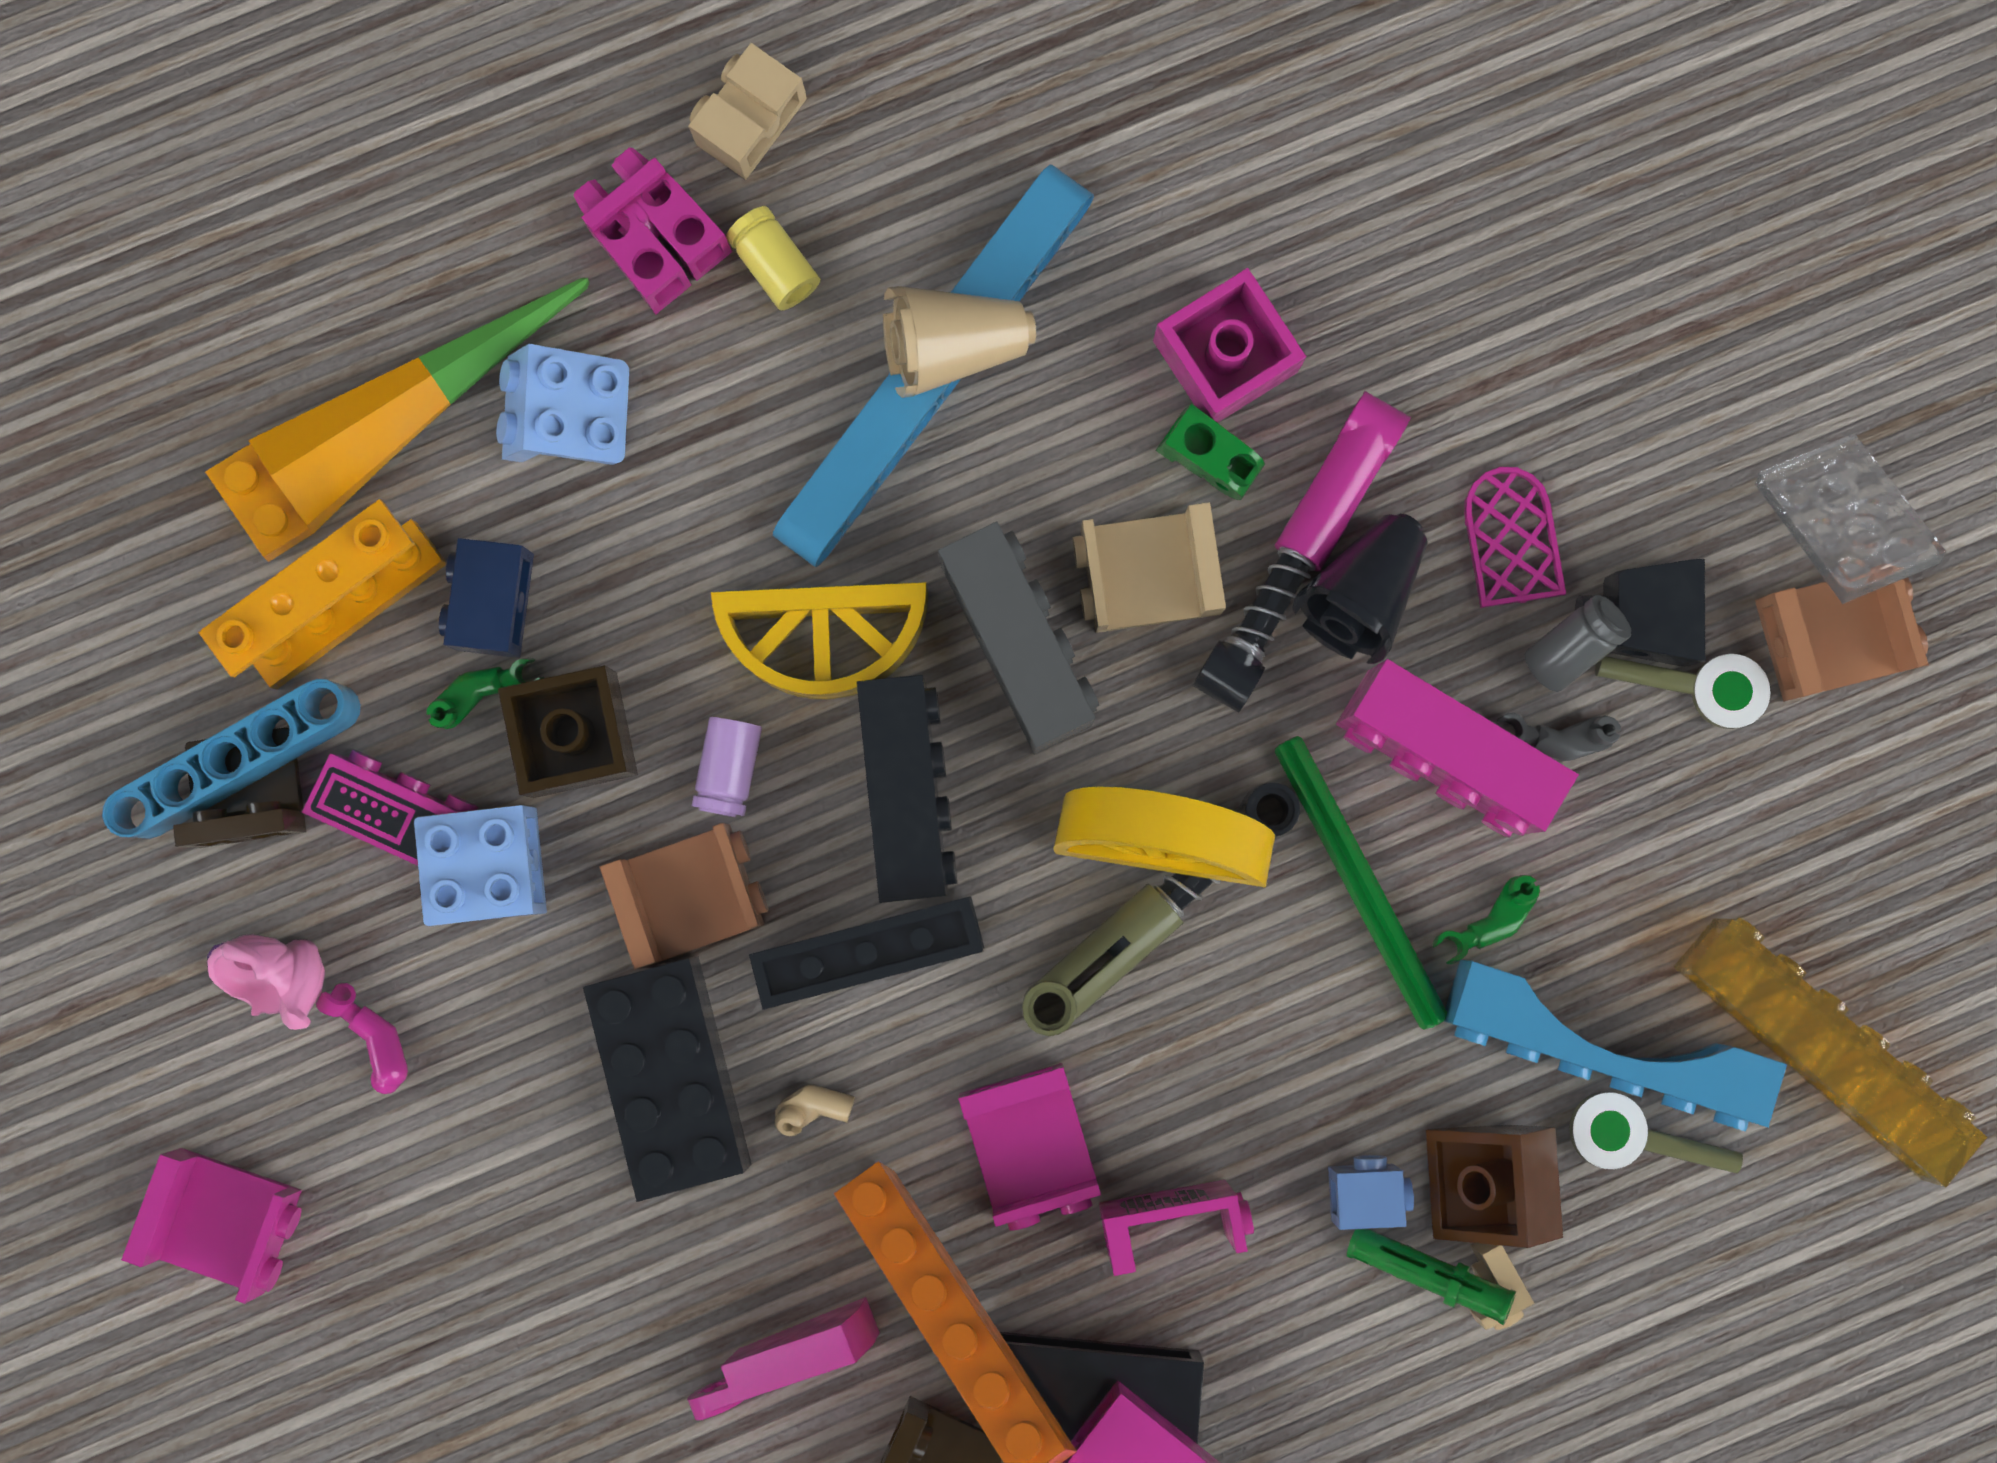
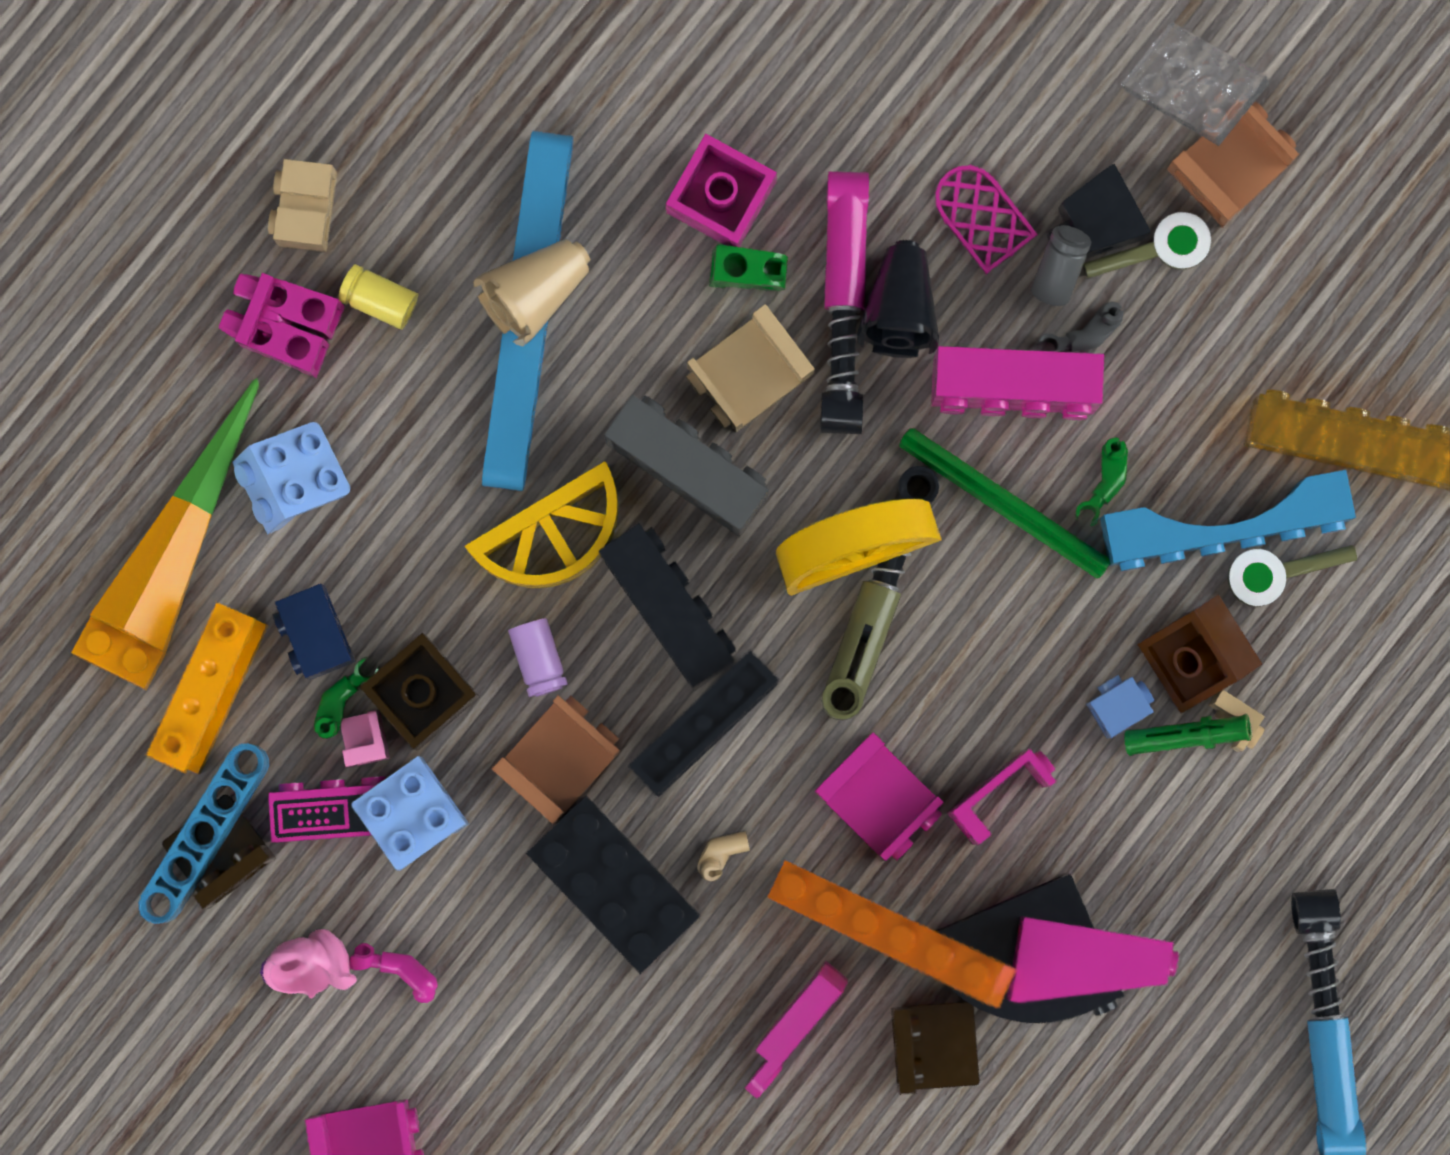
camera: 30 degrees left, 0 degrees up
(478, 753) = (364, 739): none -> bright pink panel

